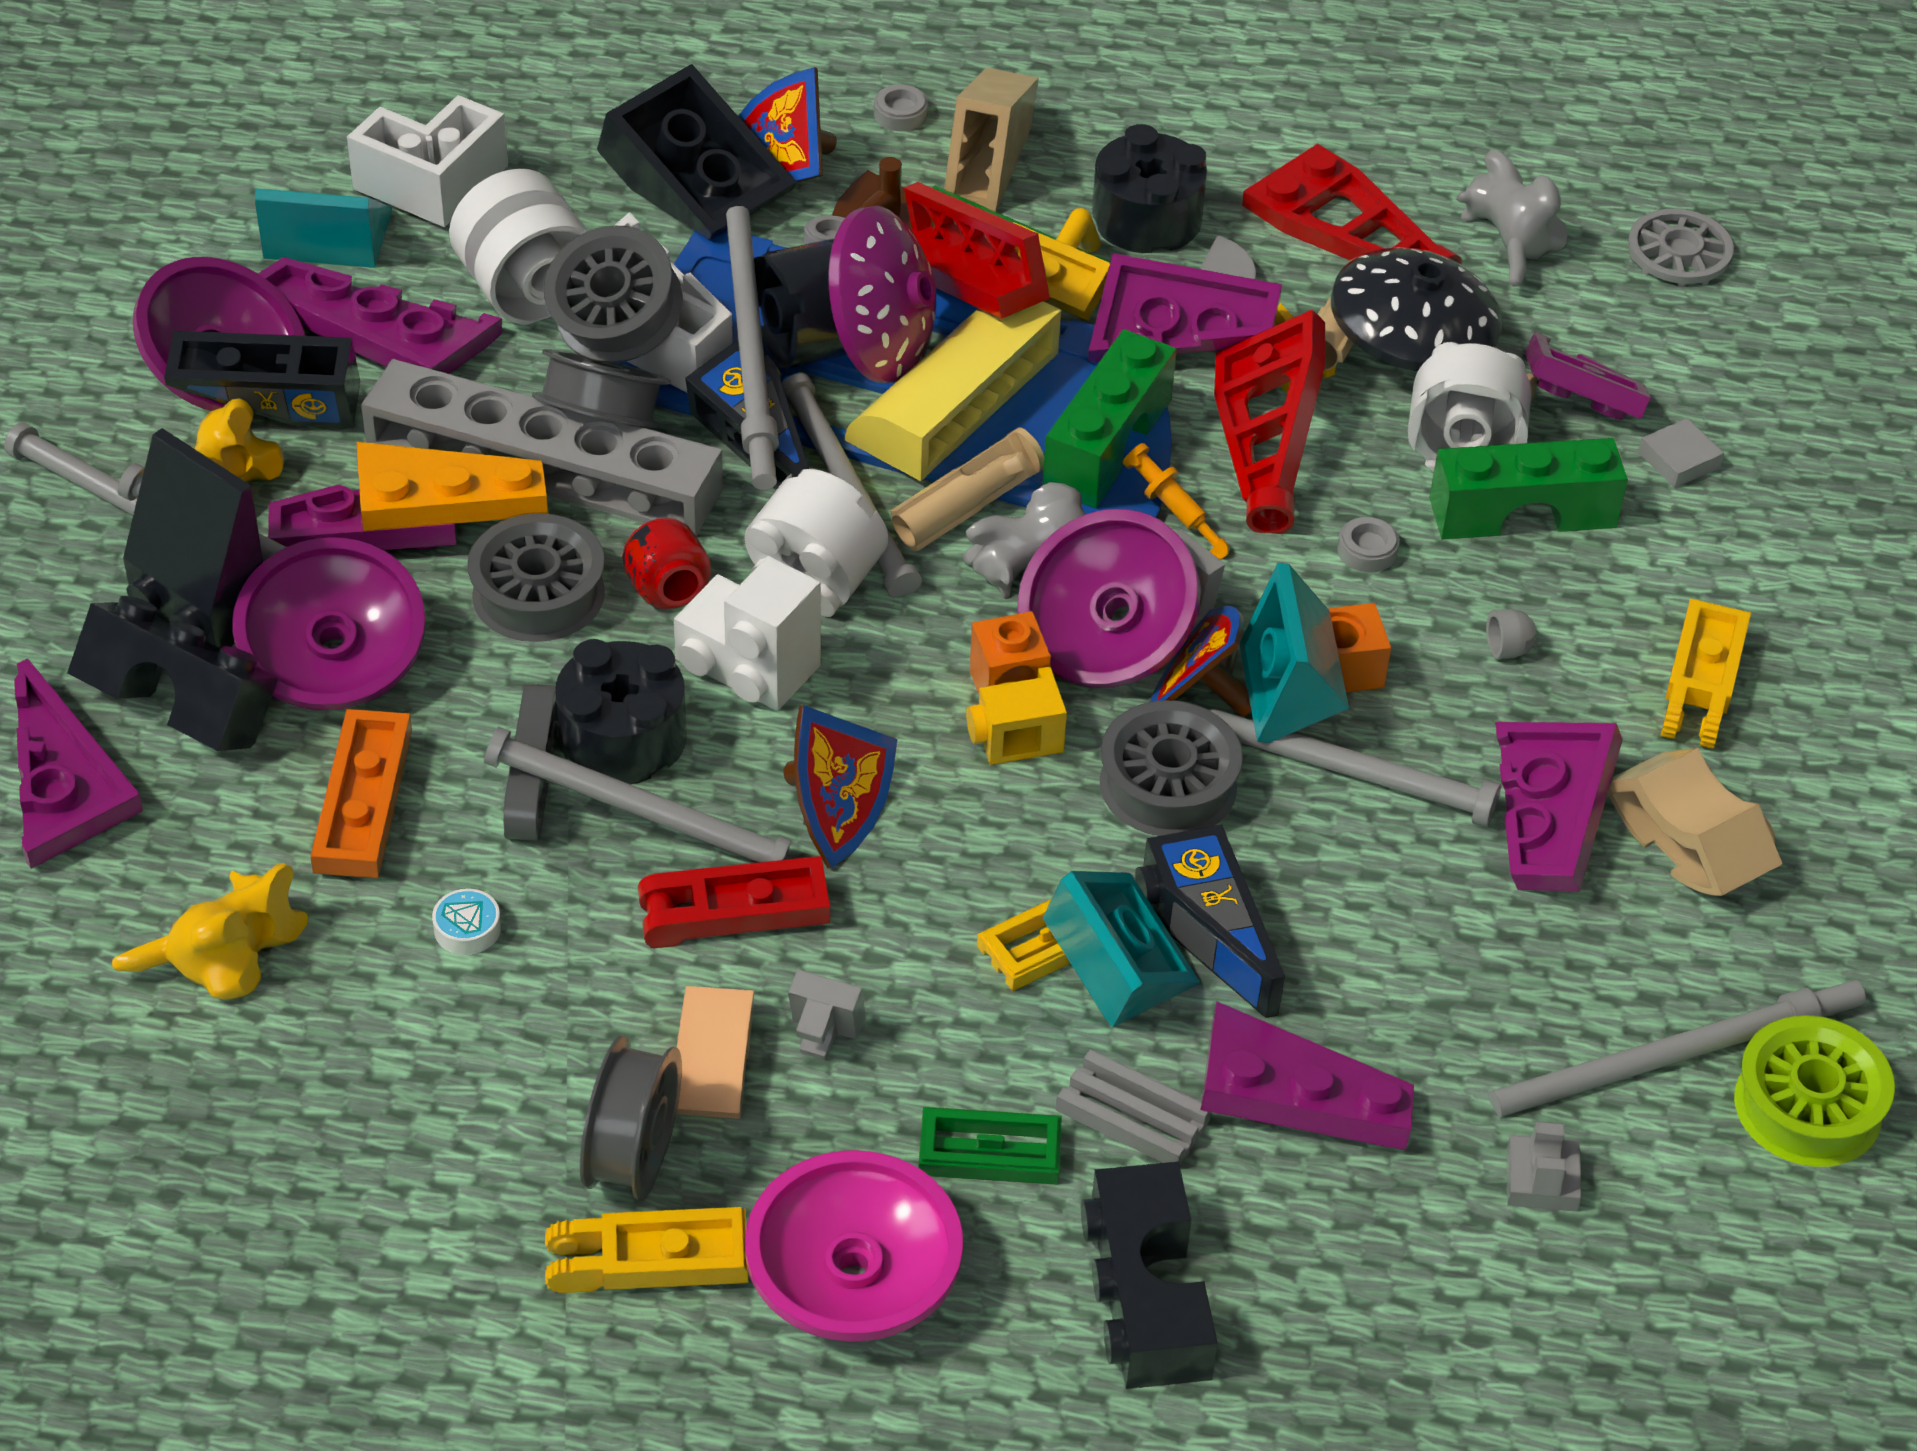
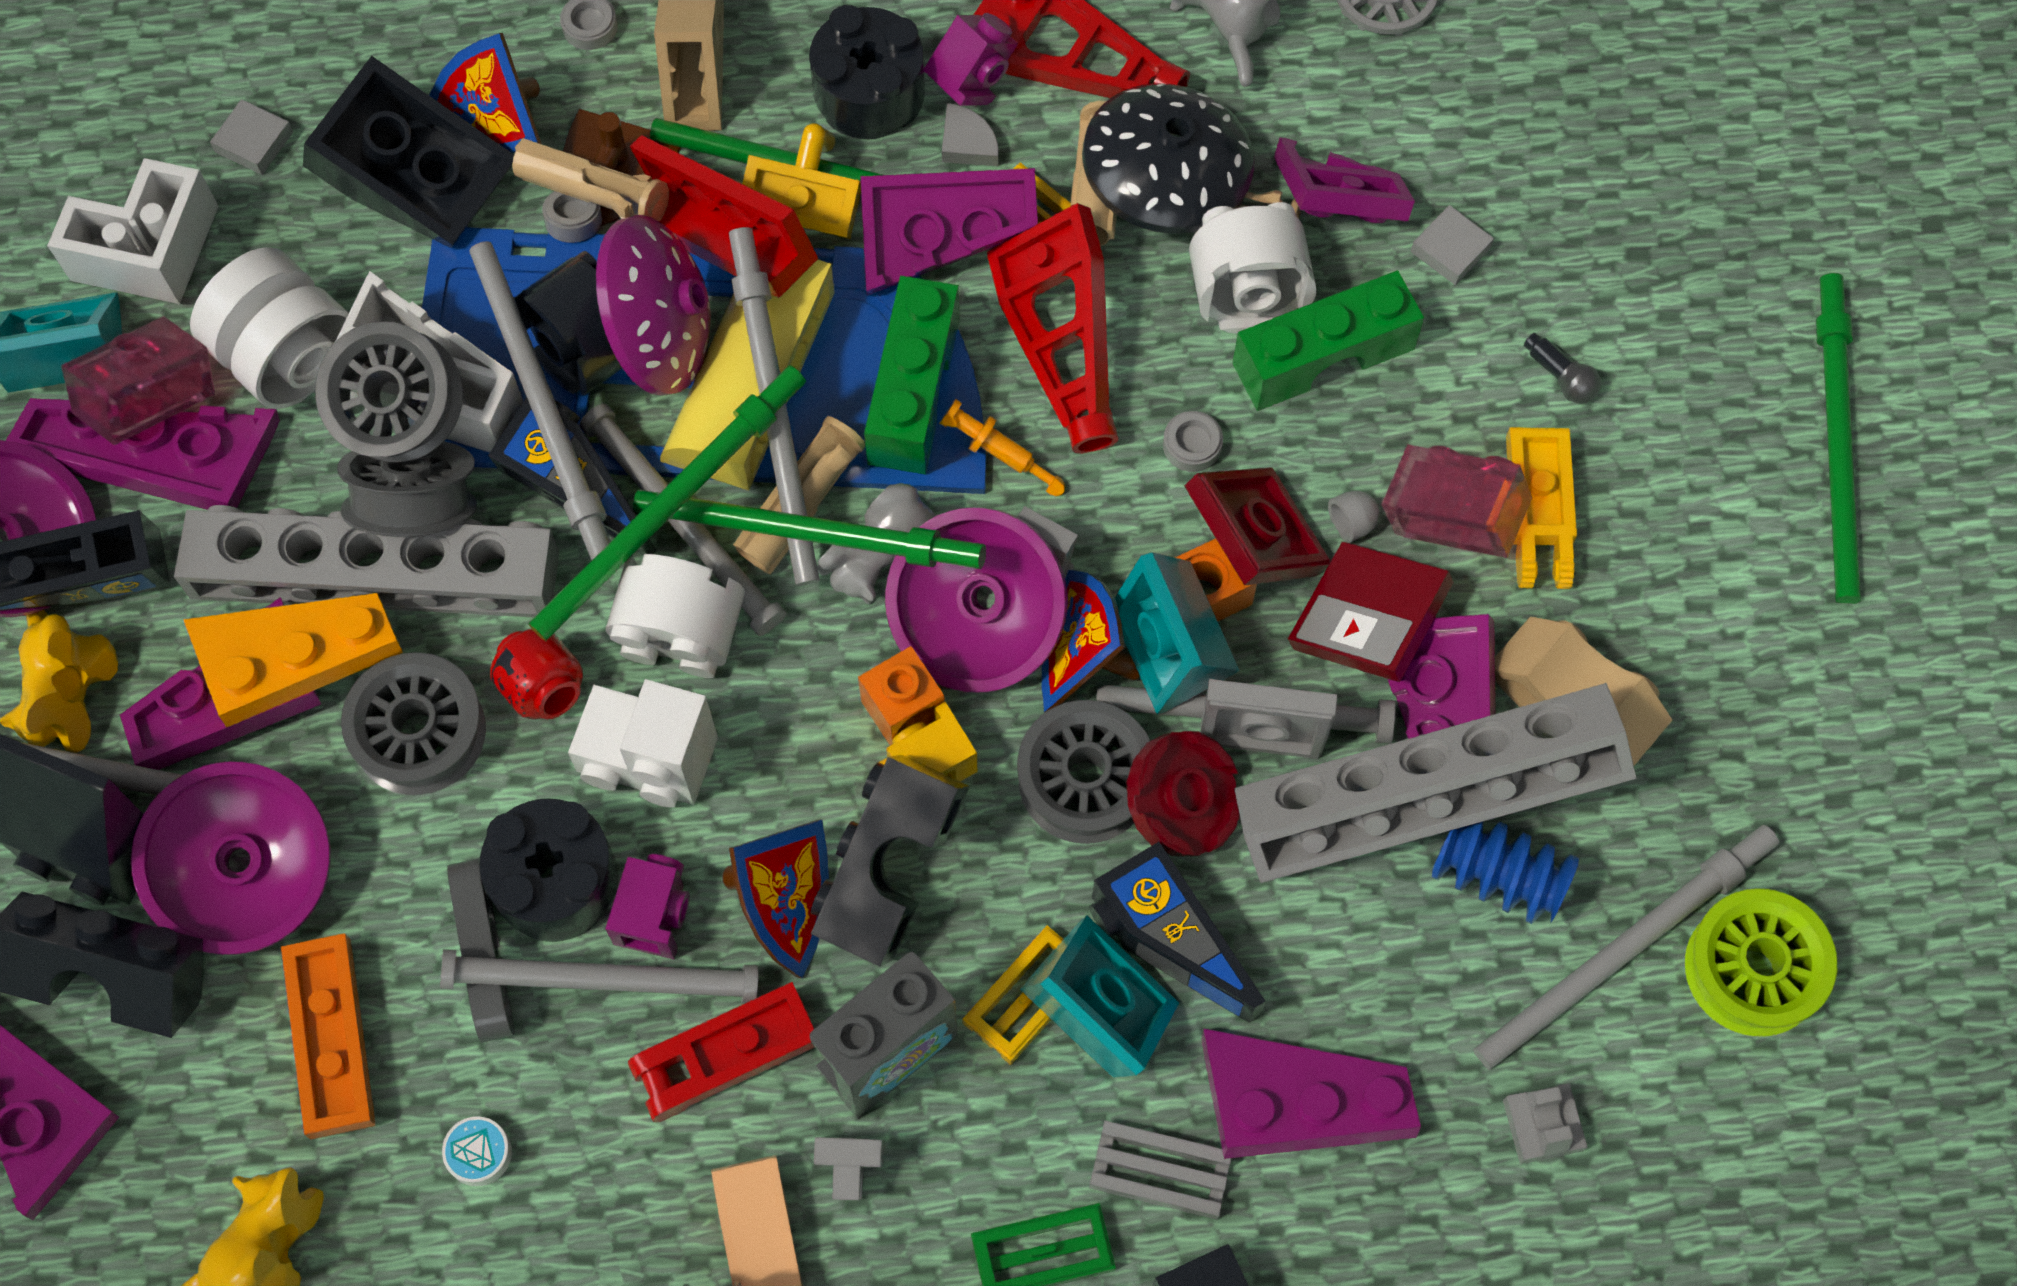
camera: 15 degrees left, 20 degrees up
(387, 257) = (138, 380): none -> clear pink brick
(558, 122) = (251, 137): none -> light grey tile
(704, 764) = (648, 905): none -> magenta brick
(839, 196) = (590, 181): none -> tan piece
(898, 900) = (885, 1033): none -> dark grey panel
(940, 394) = (751, 419): none -> green bar
(976, 302) = (752, 292): none -> light grey bar
(977, 726) = (860, 905): none -> black arch
(1064, 526) = (918, 546): none -> green bar
(1252, 199) = (972, 58): none -> magenta brick
(1263, 802) = (1183, 793): none -> dark red tile
(1363, 754) = (1268, 718): none -> light grey tile
(1408, 609) = (1257, 525): none -> dark red tile
(1500, 707) = (1371, 611): none -> dark red tile
(1513, 834) = (1435, 783): none -> light grey brick
(1563, 942) = (1506, 868): none -> blue piece
(1616, 635) = (1457, 500): none -> clear pink brick
(1773, 584) = (1577, 381): none -> piece

